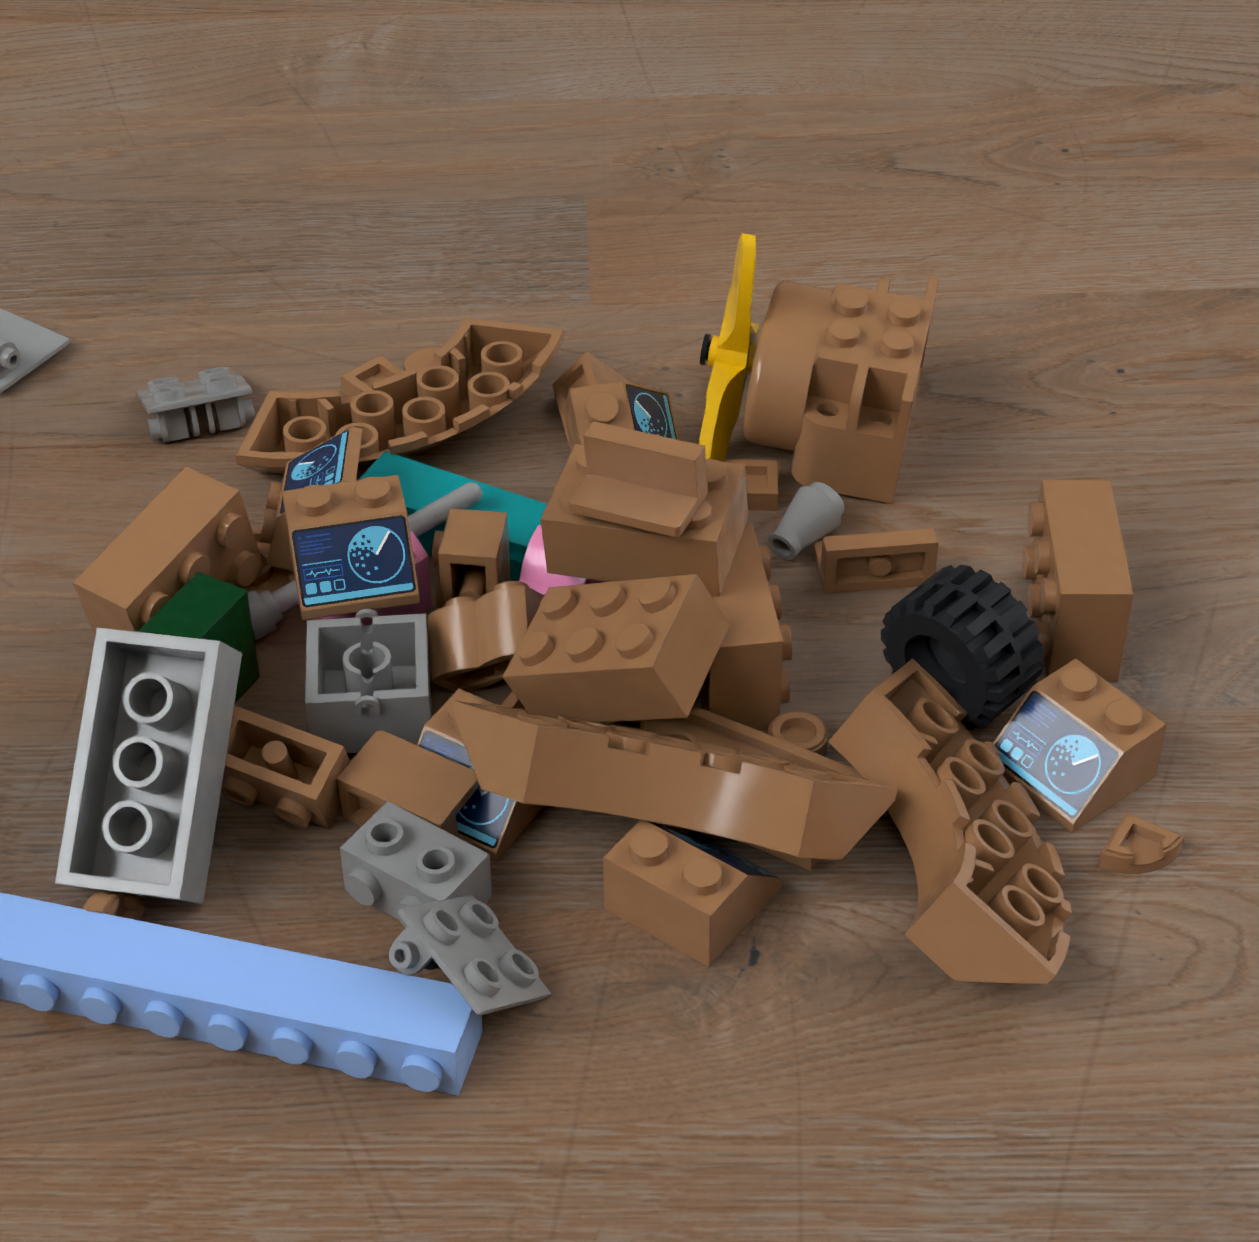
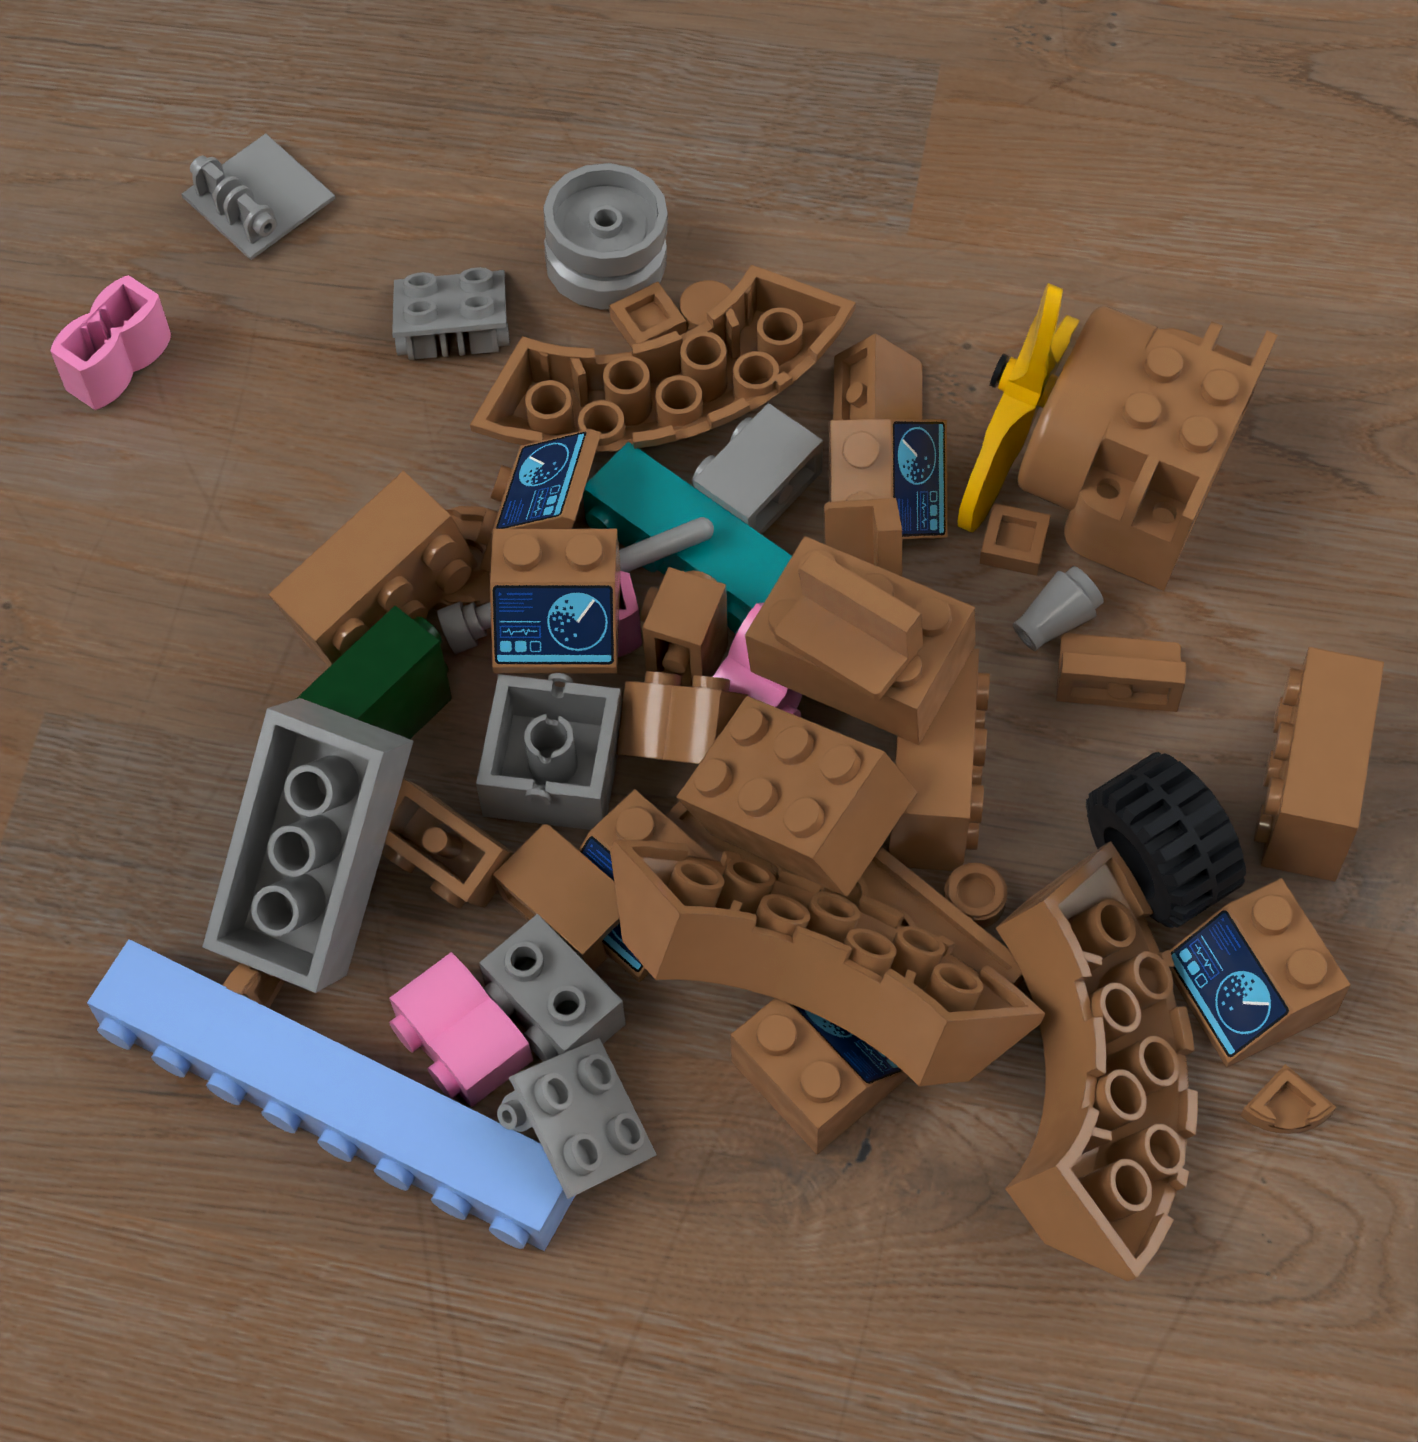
camera: 15 degrees right, 20 degrees up
(325, 322) = (604, 234): none -> light grey wheel
(328, 912) = (460, 1030): none -> bright pink brick
(514, 452) = (761, 468): none -> light grey brick

